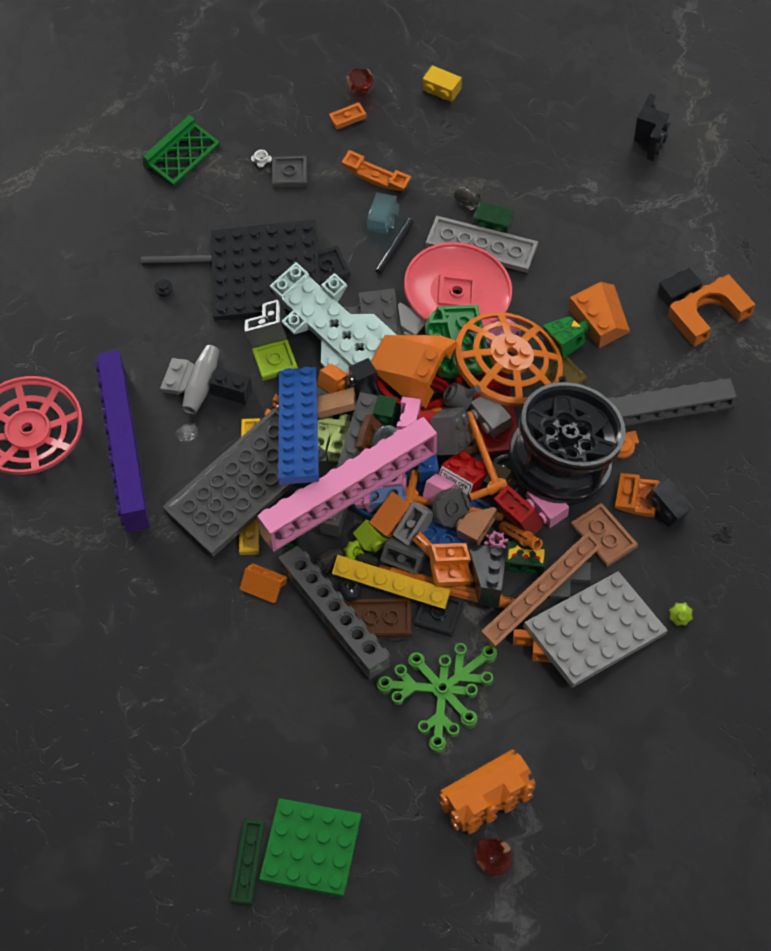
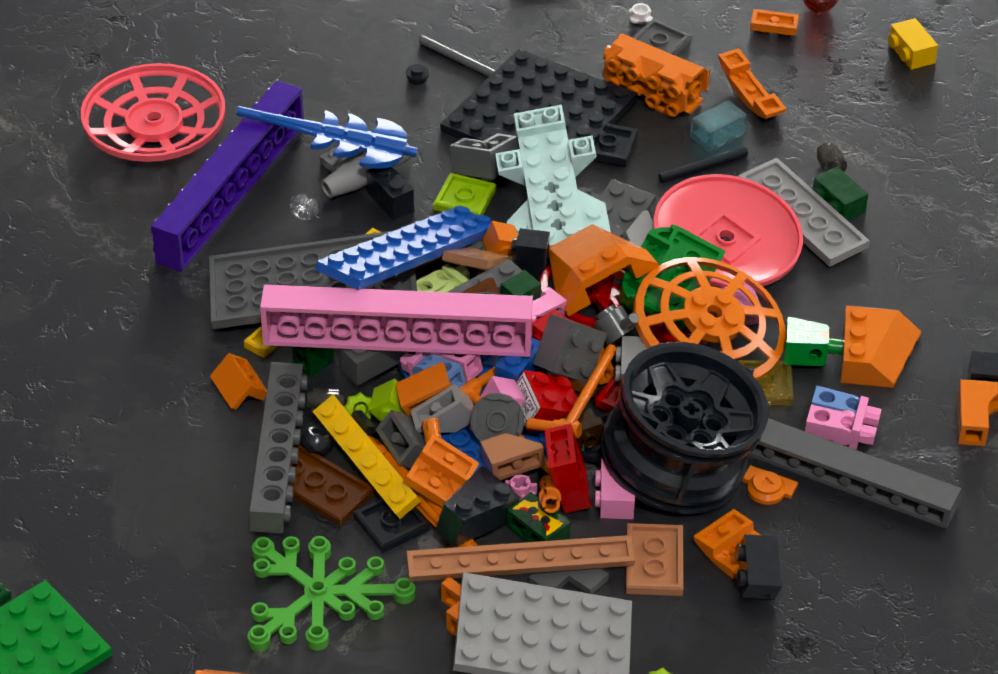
camera: 35 degrees right, 15 degrees down
(202, 357) = (382, 146): none -> blue animal
(316, 199) = (664, 79): none -> orange brick
(624, 373) = (841, 417): none -> bright pink hips

